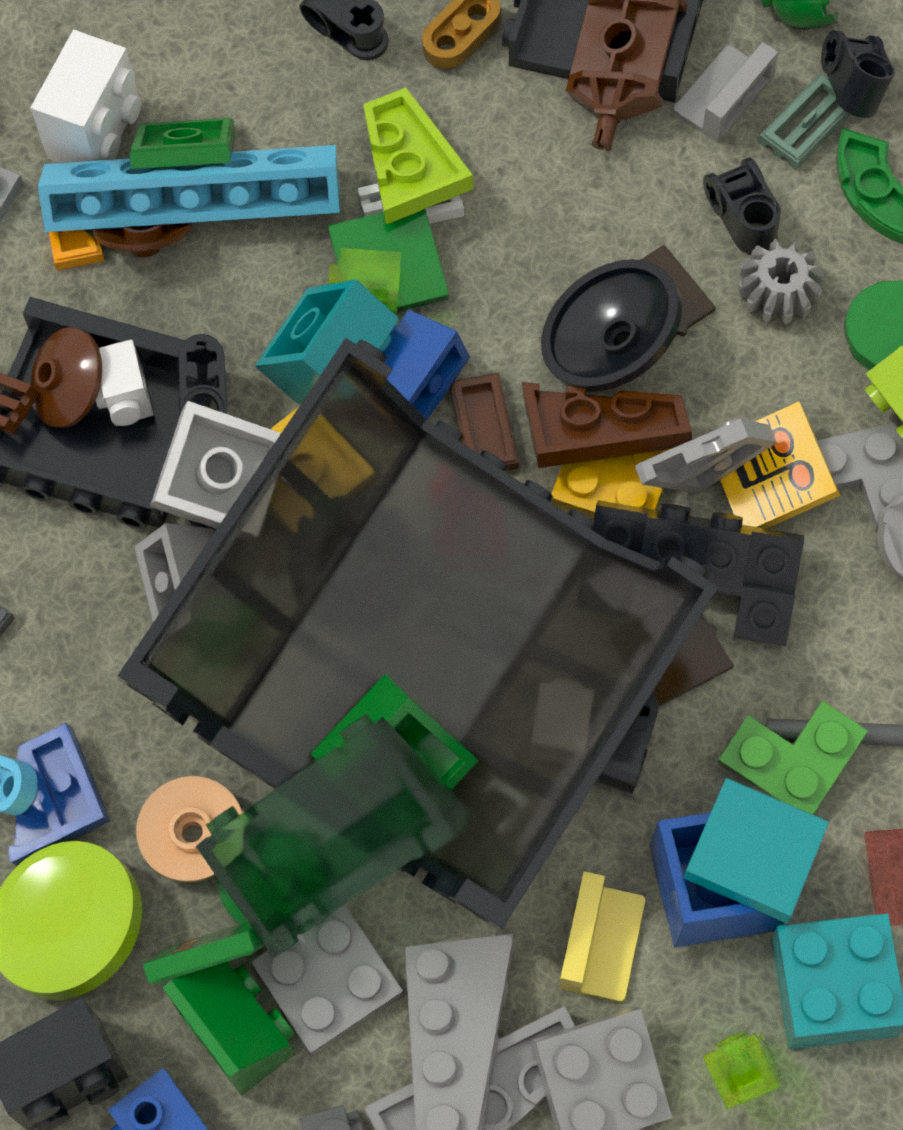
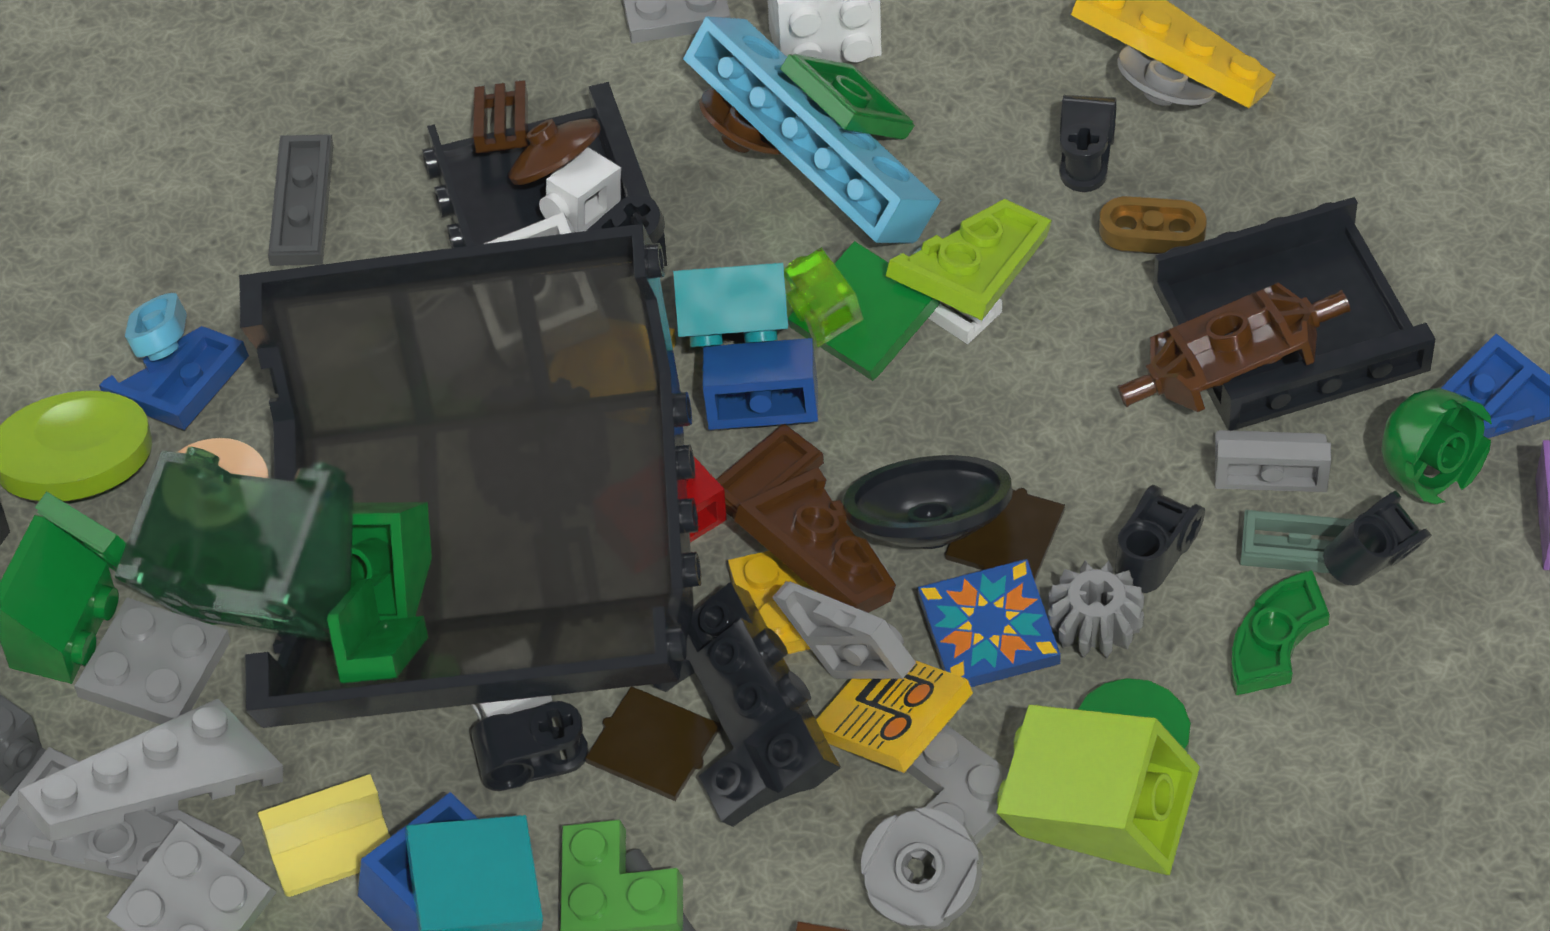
camera: 55 degrees right, 15 degrees down
(74, 249) = (687, 94): light orange tile -> none
(502, 790) = (370, 646): none -> green panel
(738, 360) = (989, 624): none -> tile

